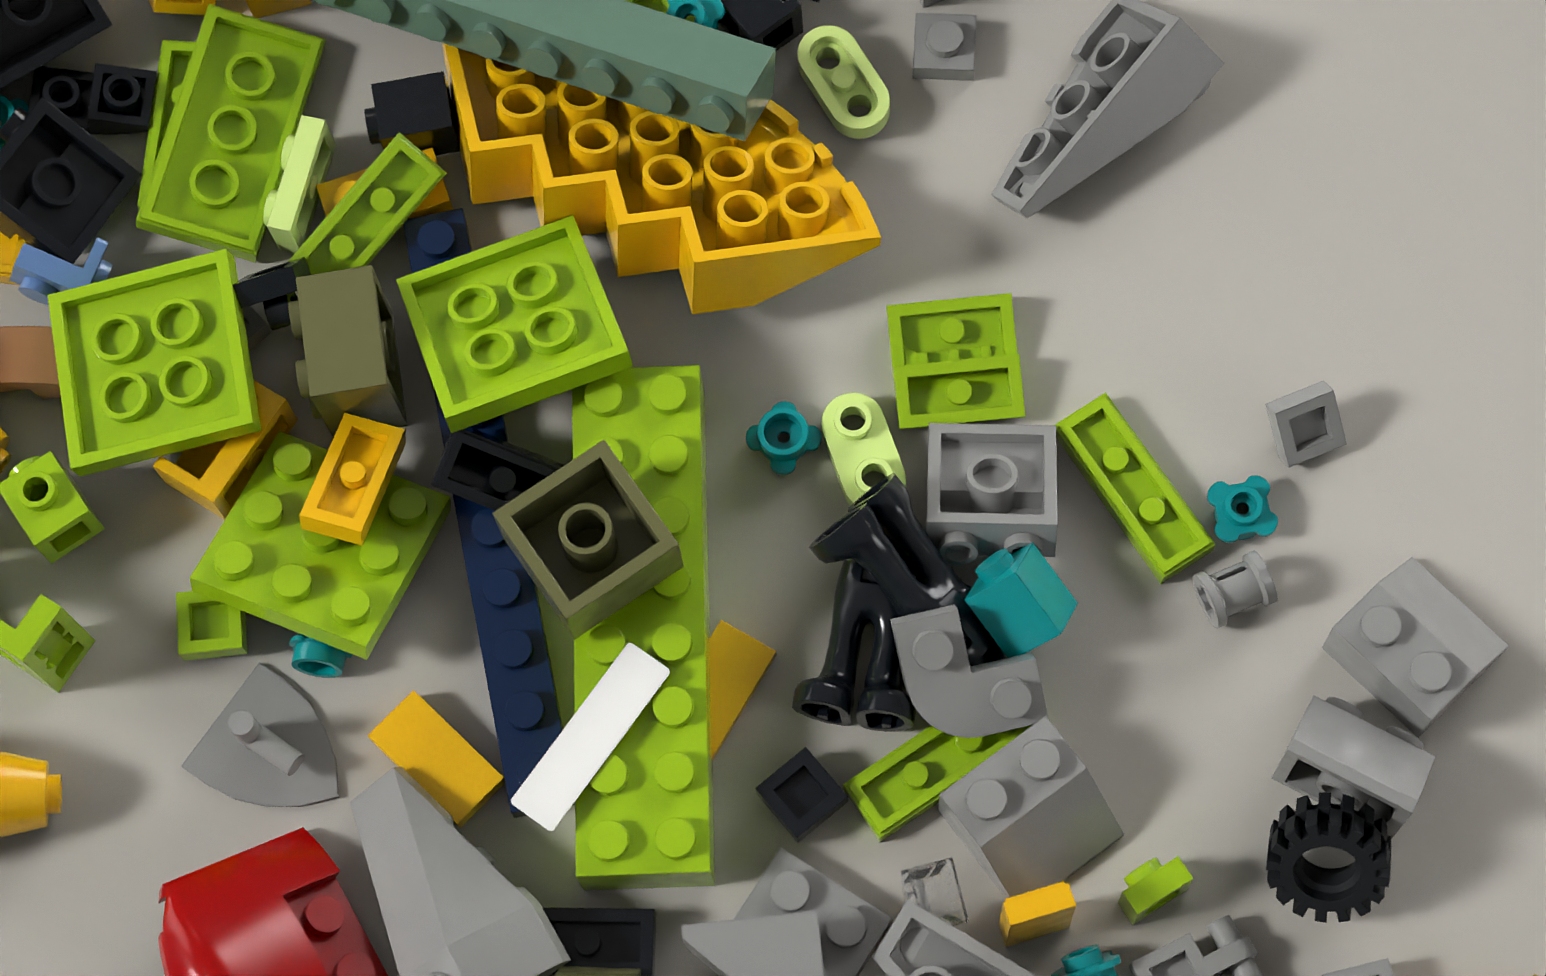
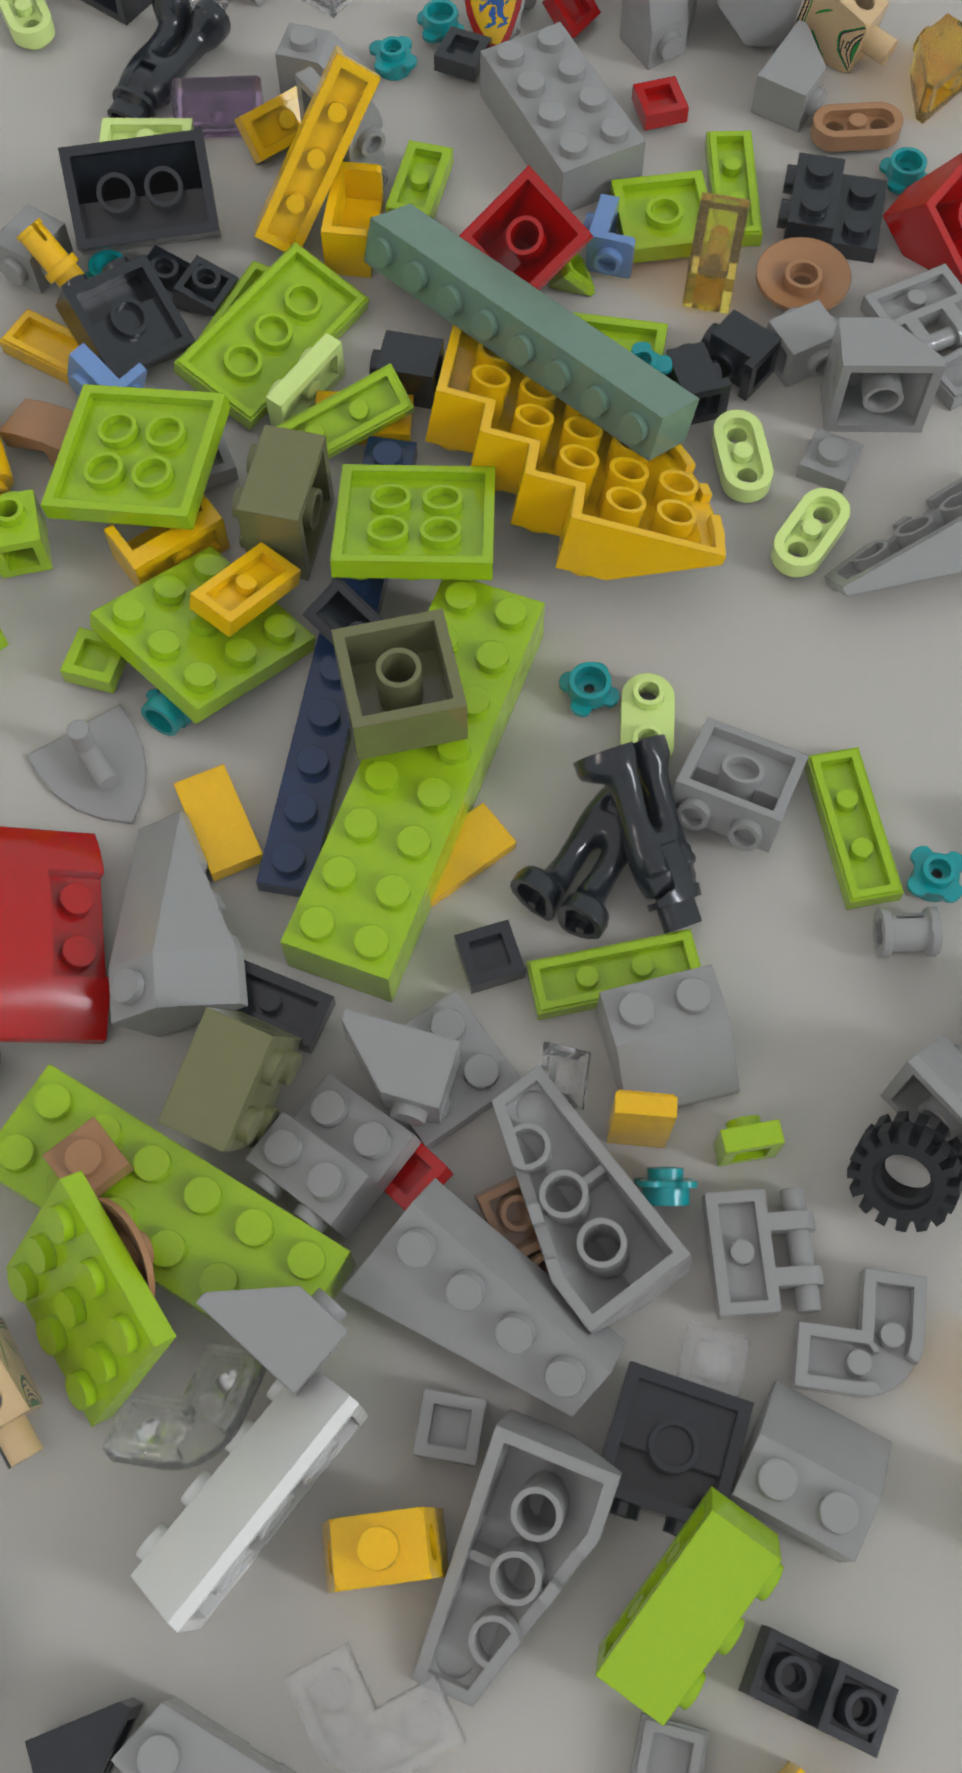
camera: 15 degrees right, 5 degrees down
(274, 288) = (241, 435): black tile -> none
(590, 736) = (338, 838): white sticker -> none
(955, 361) = (747, 681): lime slope -> none
(956, 153) = (806, 535): none -> yellowish green plate
(962, 697) = (643, 921): light grey plate -> none
(1020, 600) = (727, 870): teal brick -> none

